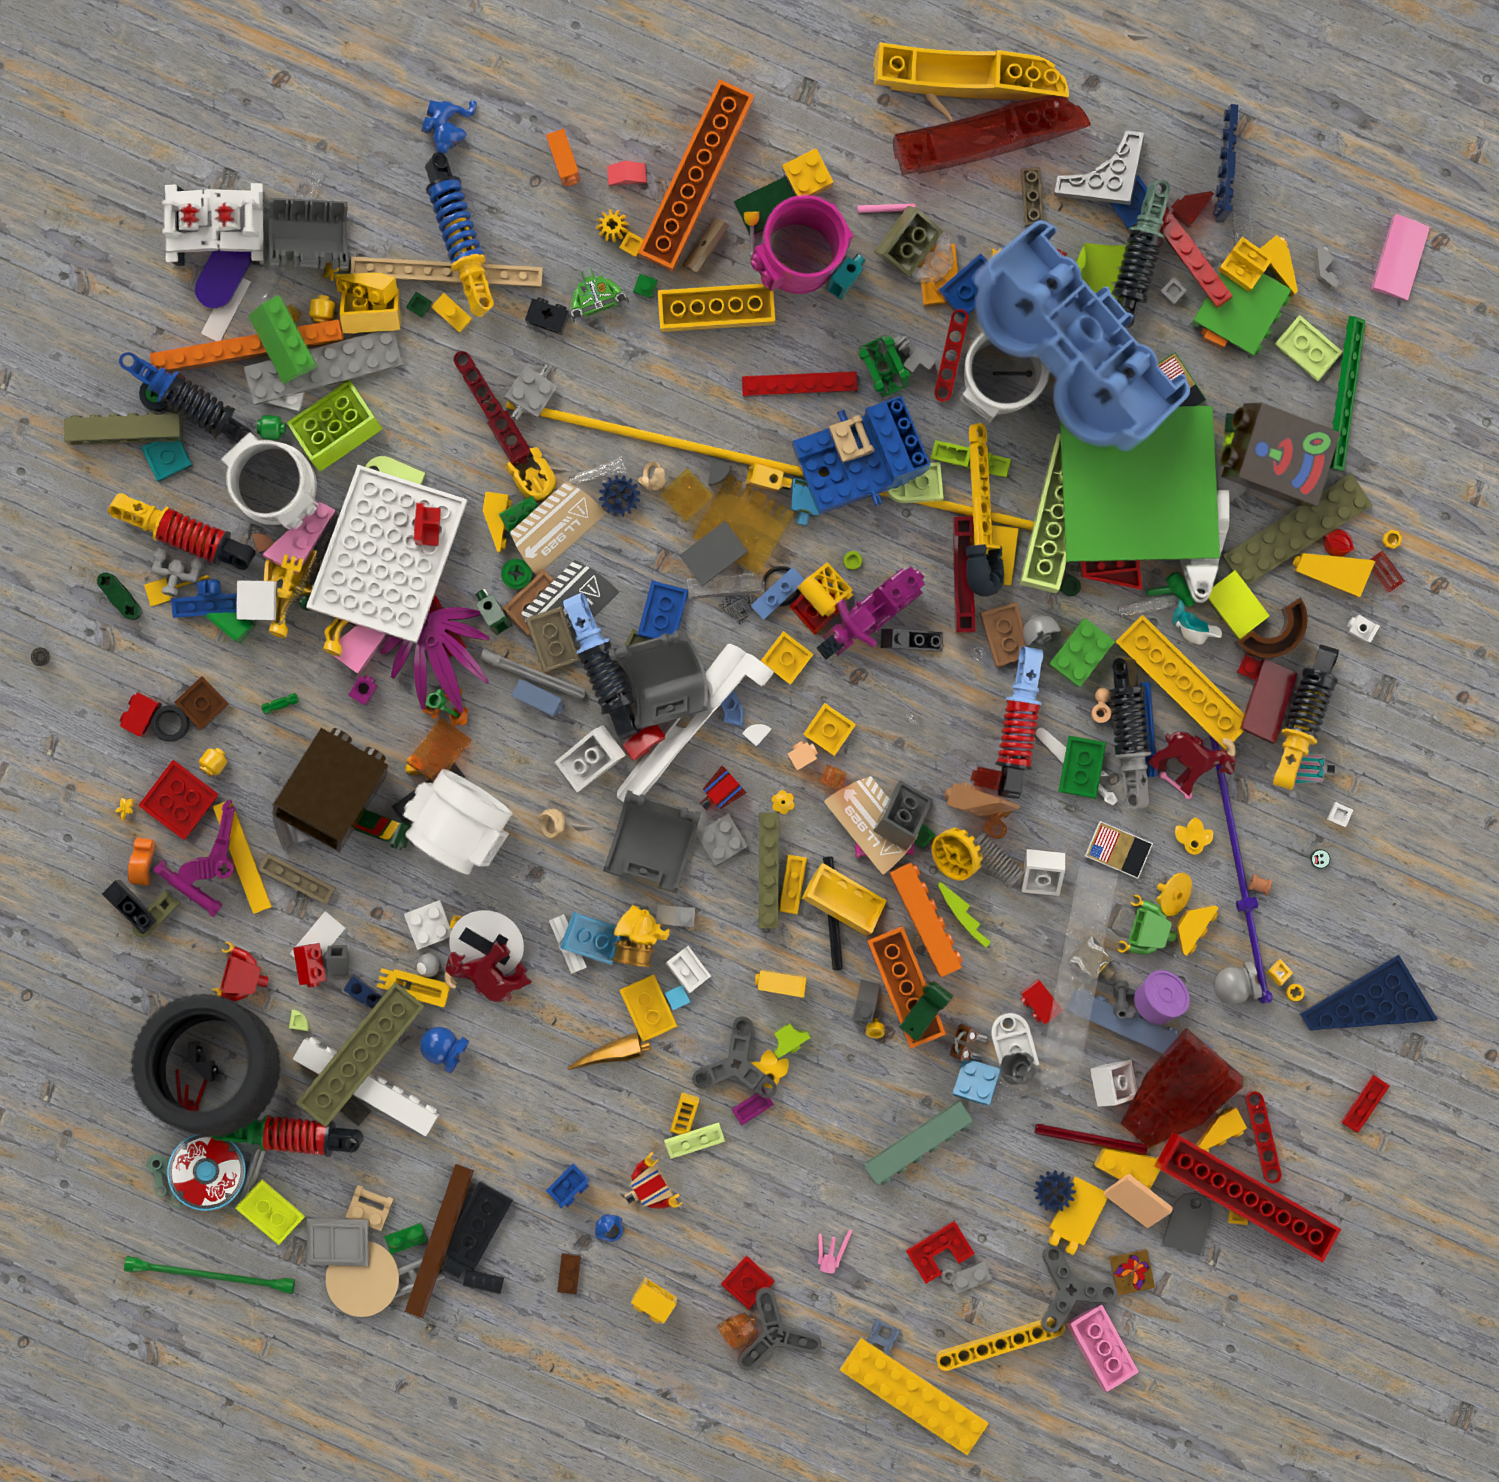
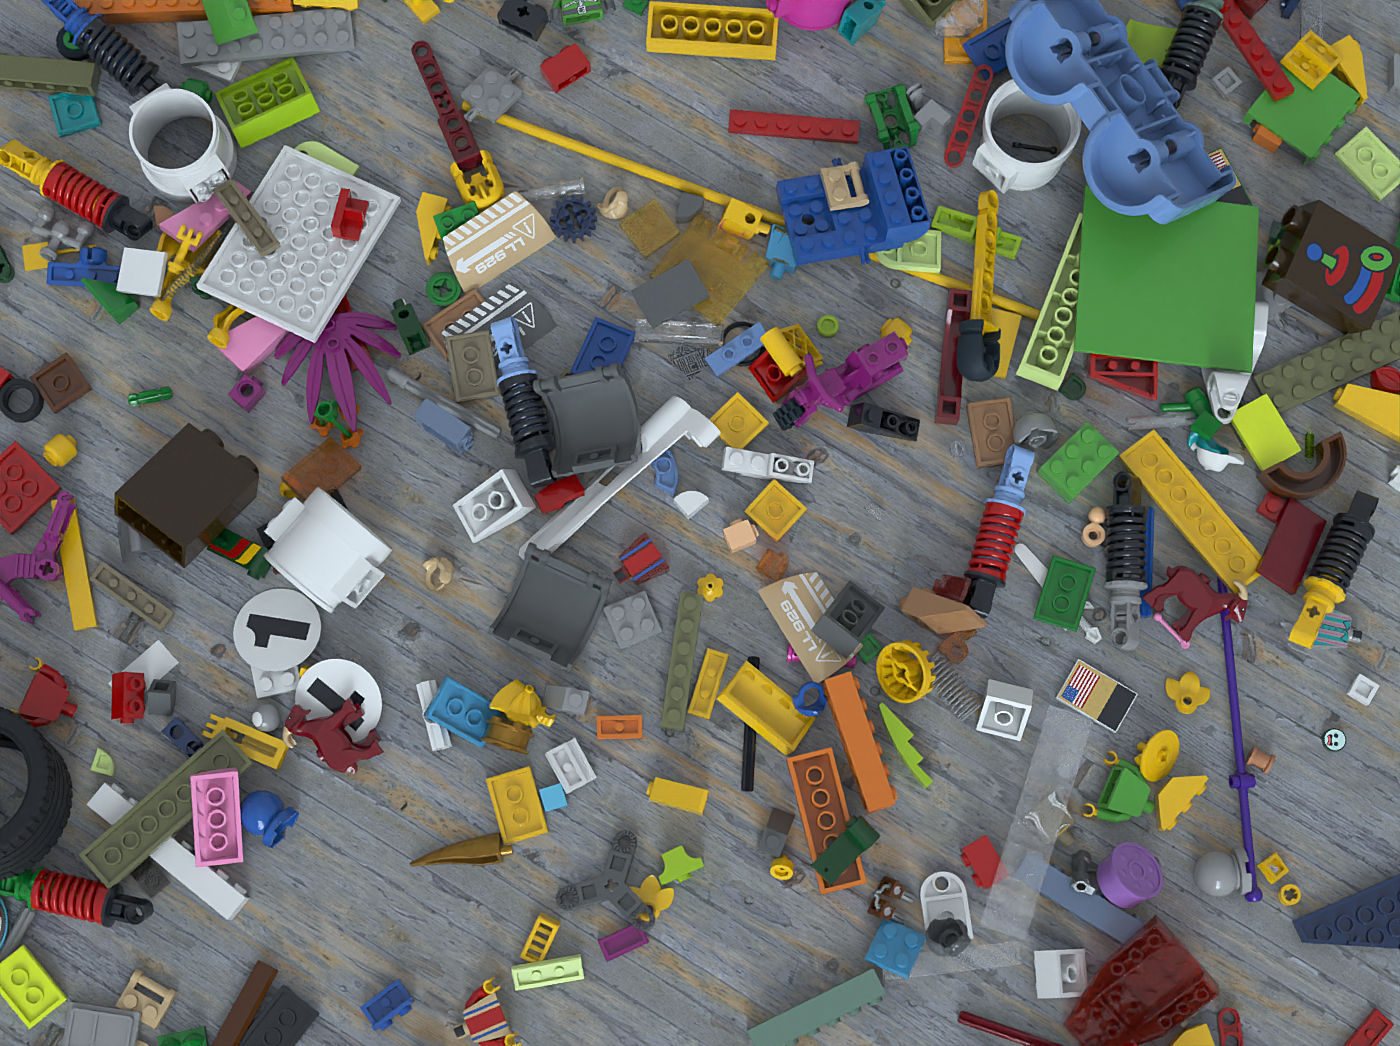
camera: 10 degrees right, 10 degrees down
(338, 540) = (246, 218): none -> dark tan plate
(403, 1055) = (216, 817): none -> bright pink slope
(423, 890) = (277, 630): none -> white sticker
(591, 358) = (565, 67): none -> red brick
(724, 931) = (619, 727): none -> orange plate
(817, 691) = (767, 465): none -> white slope
(883, 895) = (811, 710): none -> blue piece
(913, 558) = (899, 327): none -> yellow head
(1186, 607) = (1206, 425): none -> green tile
(1276, 608) = (1309, 445): none -> clear neon green piece

